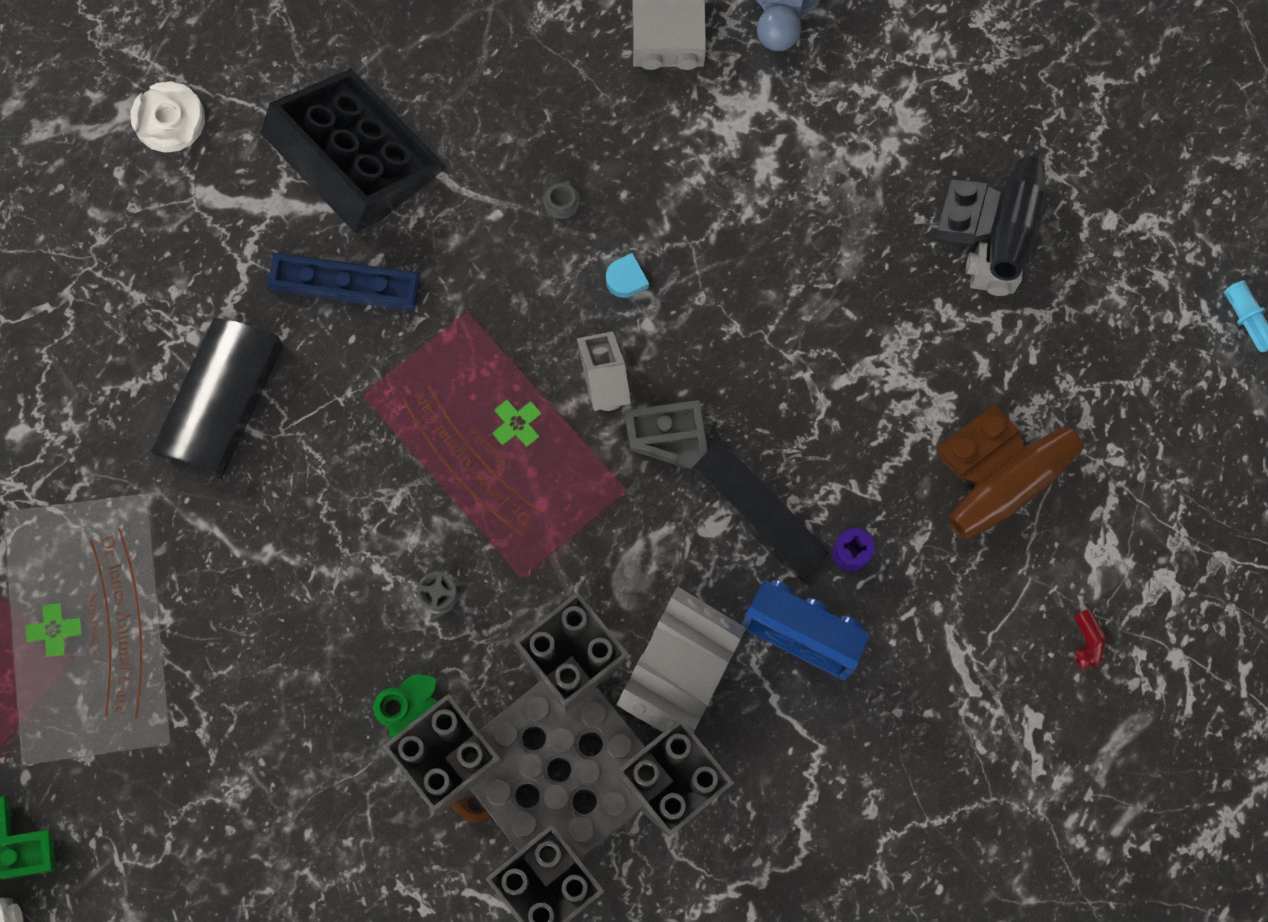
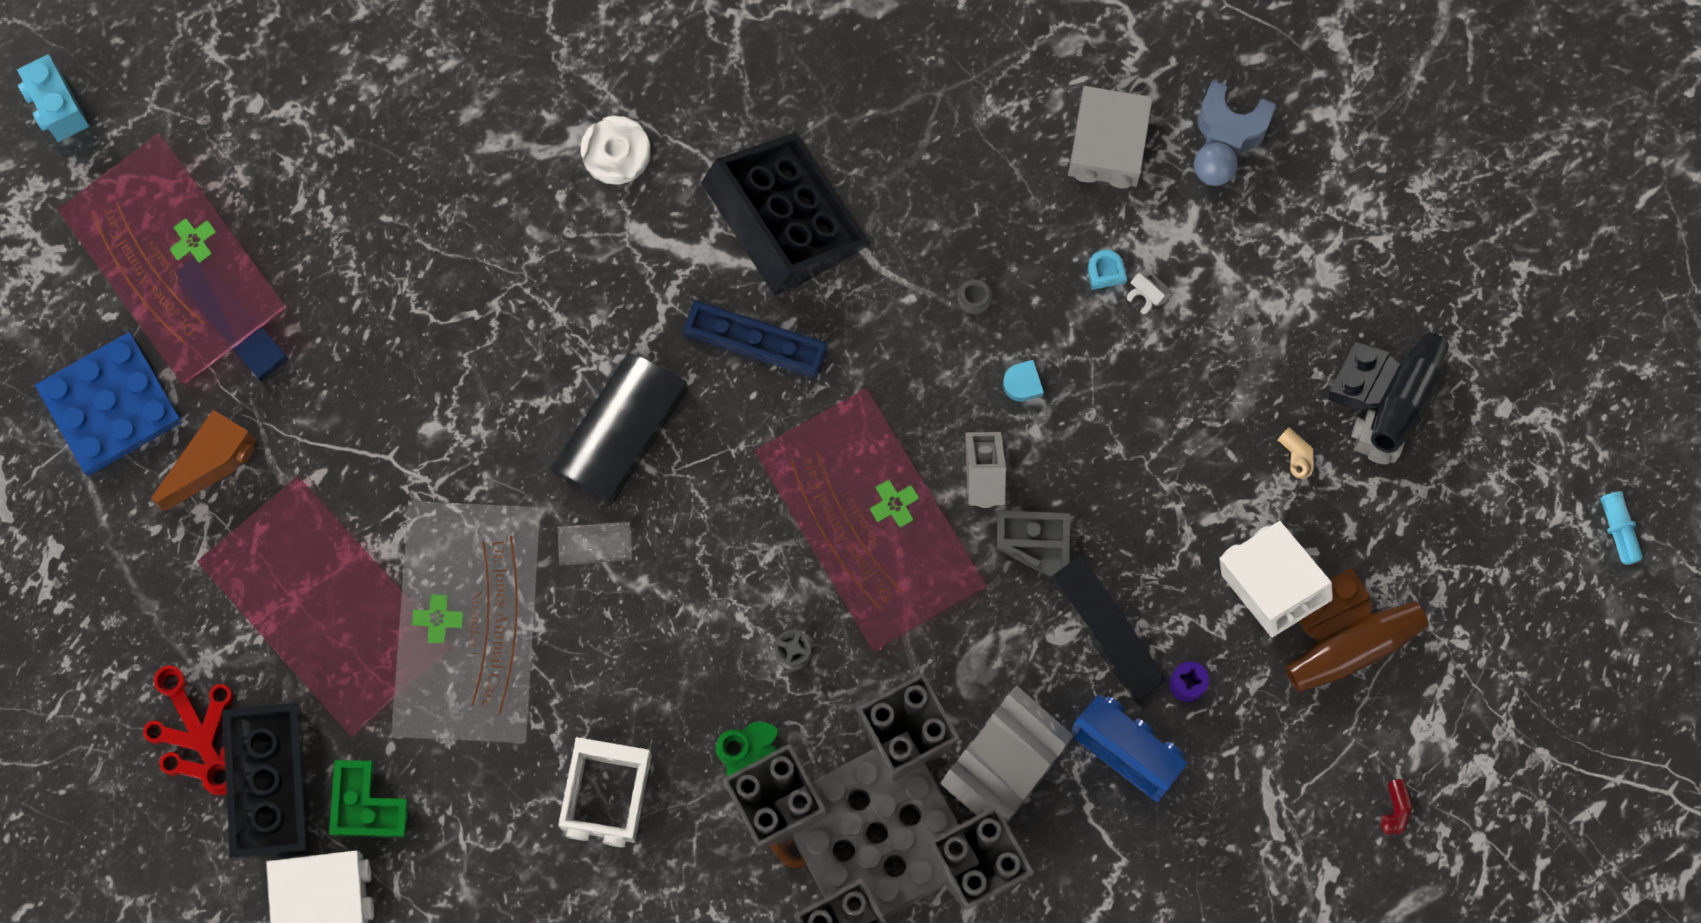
camera: 15 degrees right, 0 degrees up
(210, 520) = (595, 543): none -> clear plate
(260, 738) = (611, 754): none -> white window
(689, 151) = (1106, 269): none -> medium azure tile
(737, 161) = (1151, 288): none -> tile
(919, 298) = (1301, 454): none -> tan arm
(921, 428) = (1275, 578): none -> white brick

